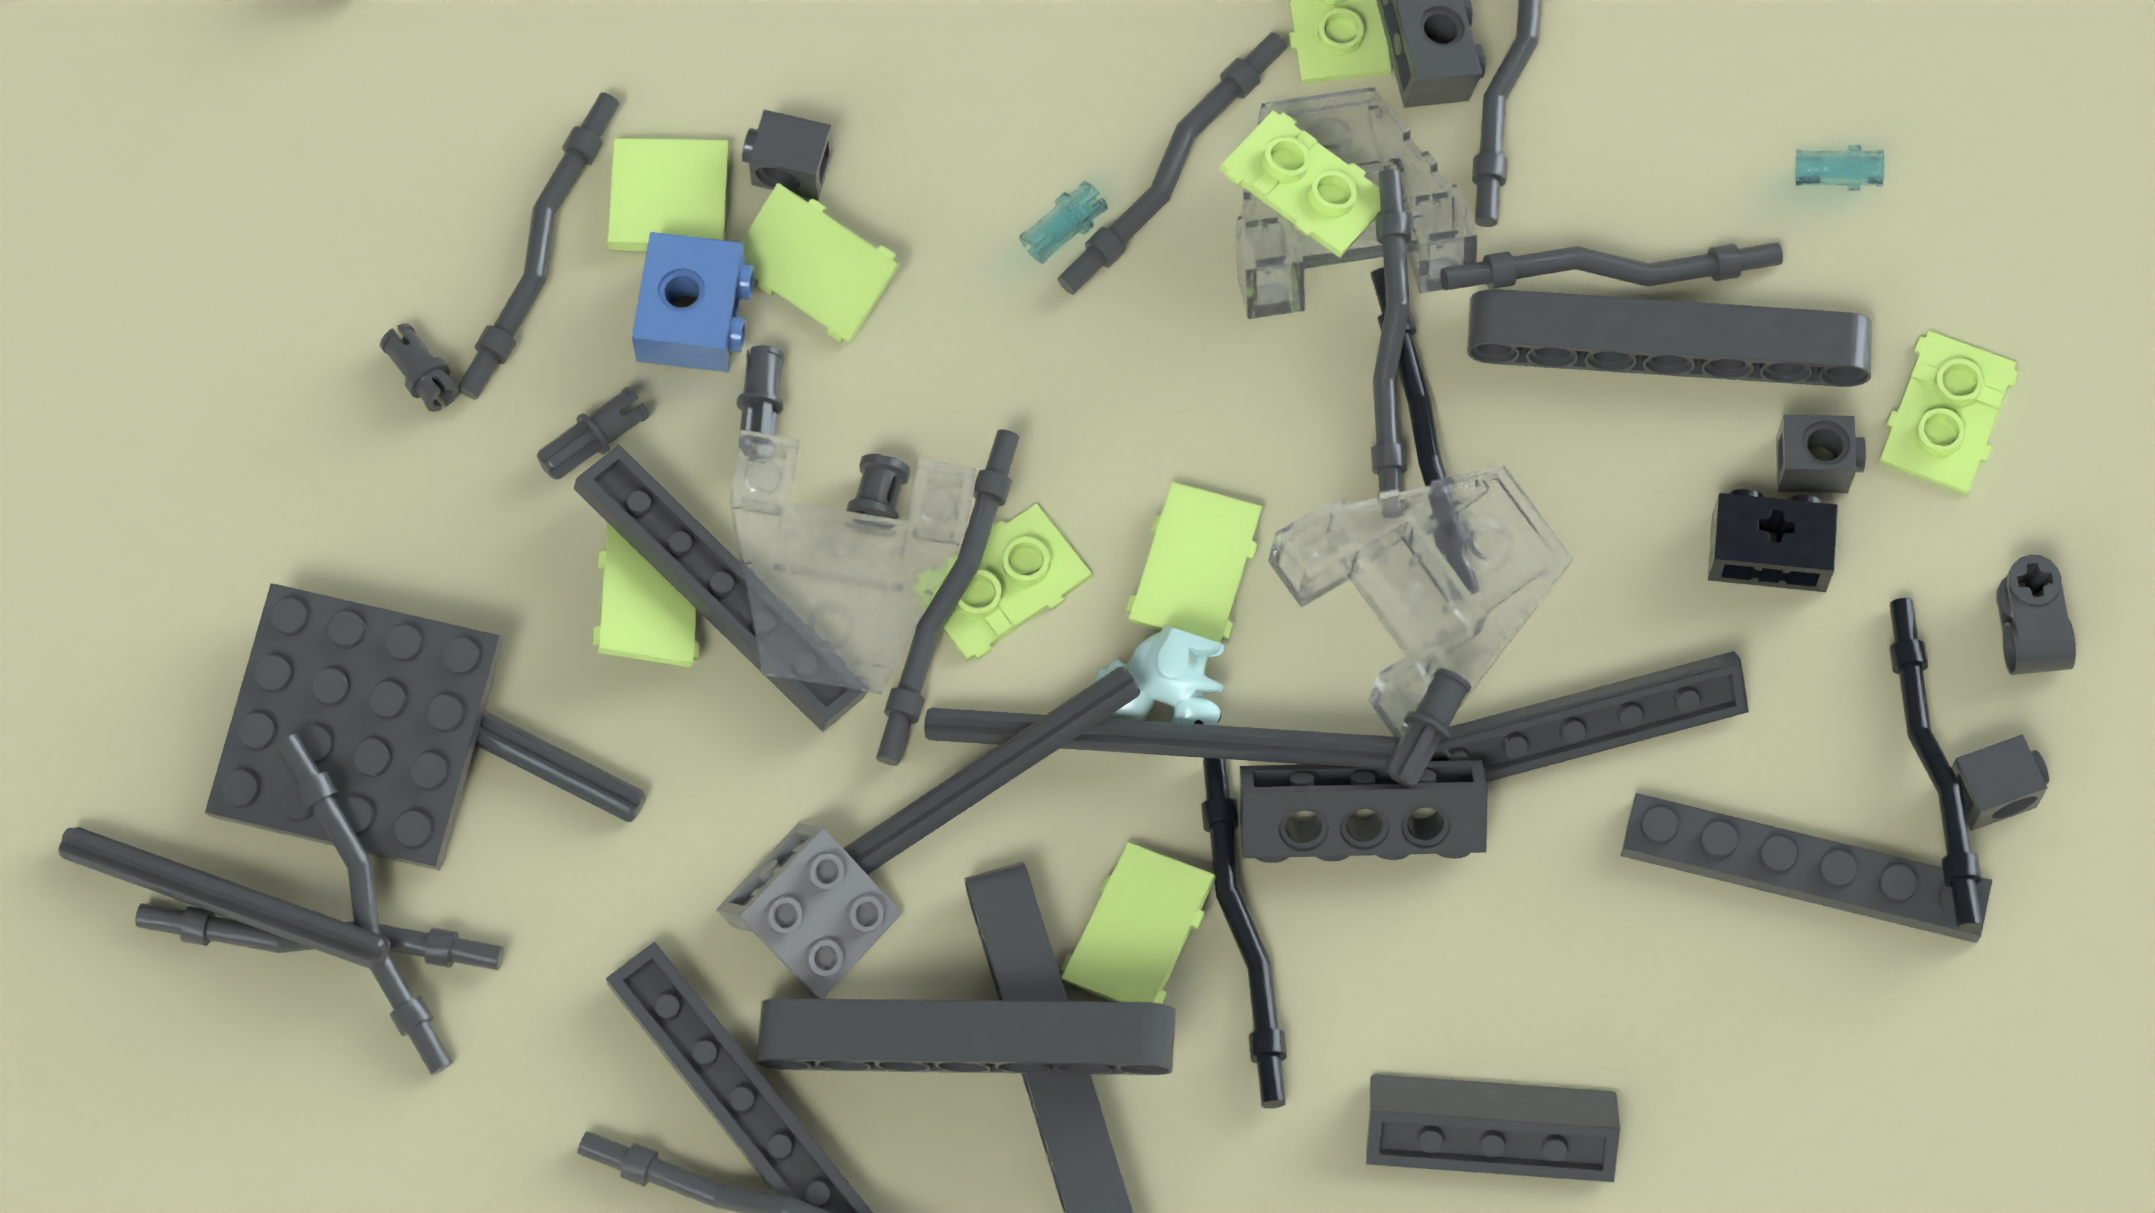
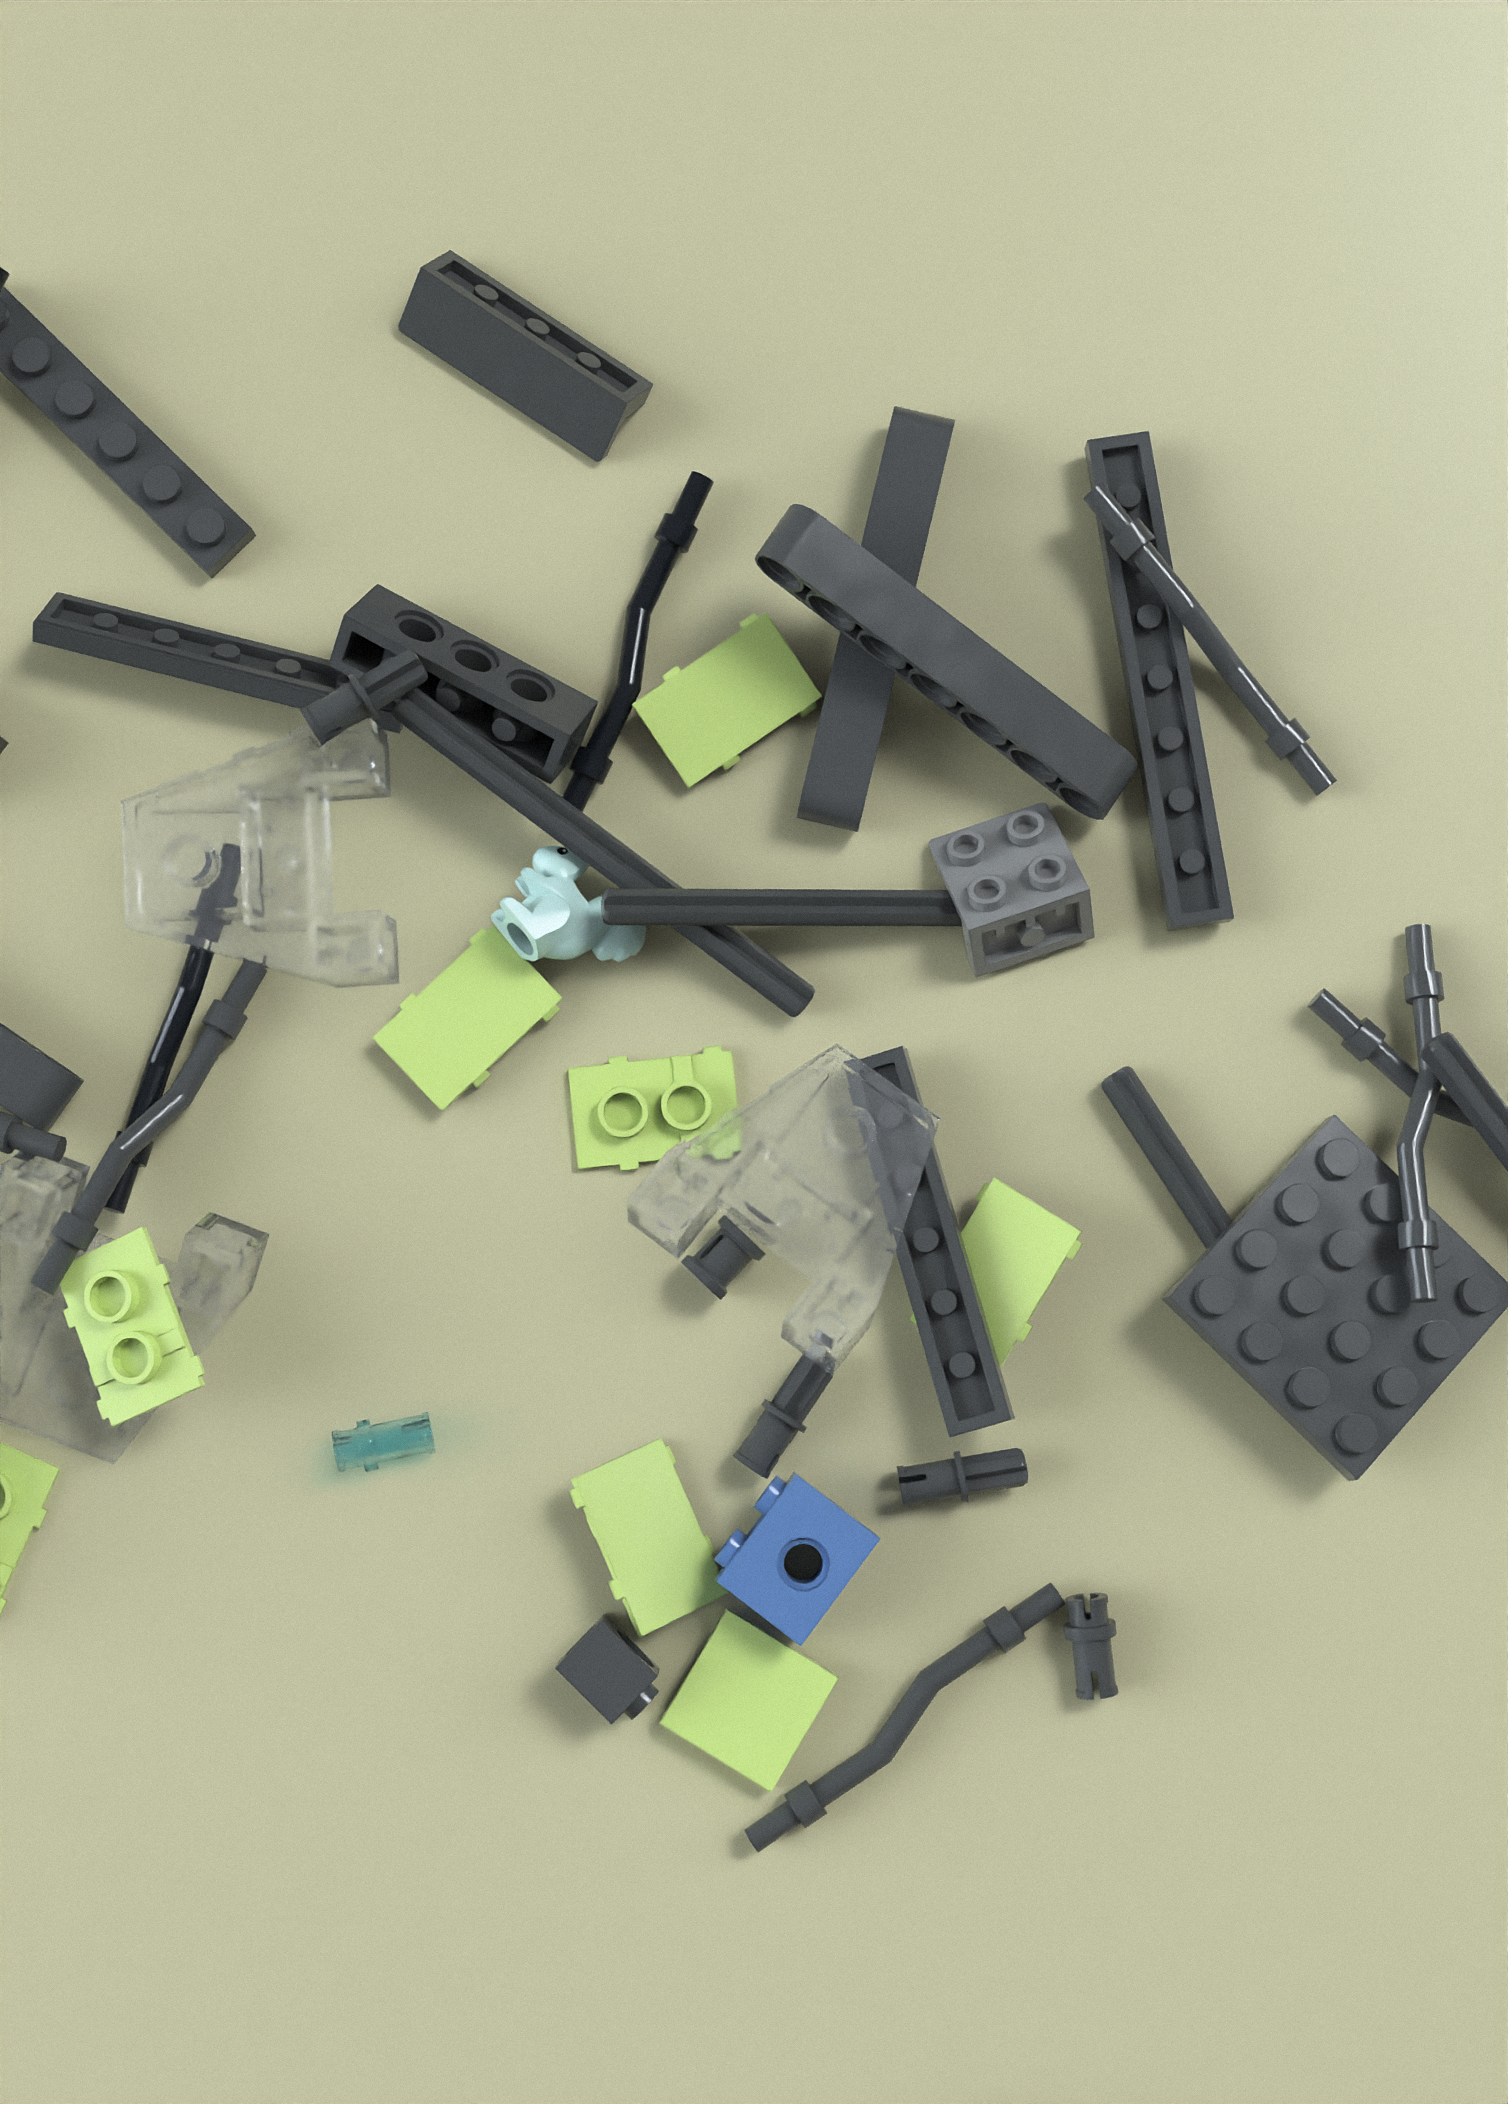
camera: 155 degrees left, 15 degrees up
(905, 702) = (814, 1035): dark grey bar -> none
(1108, 243) = (121, 1499): dark grey bar -> none

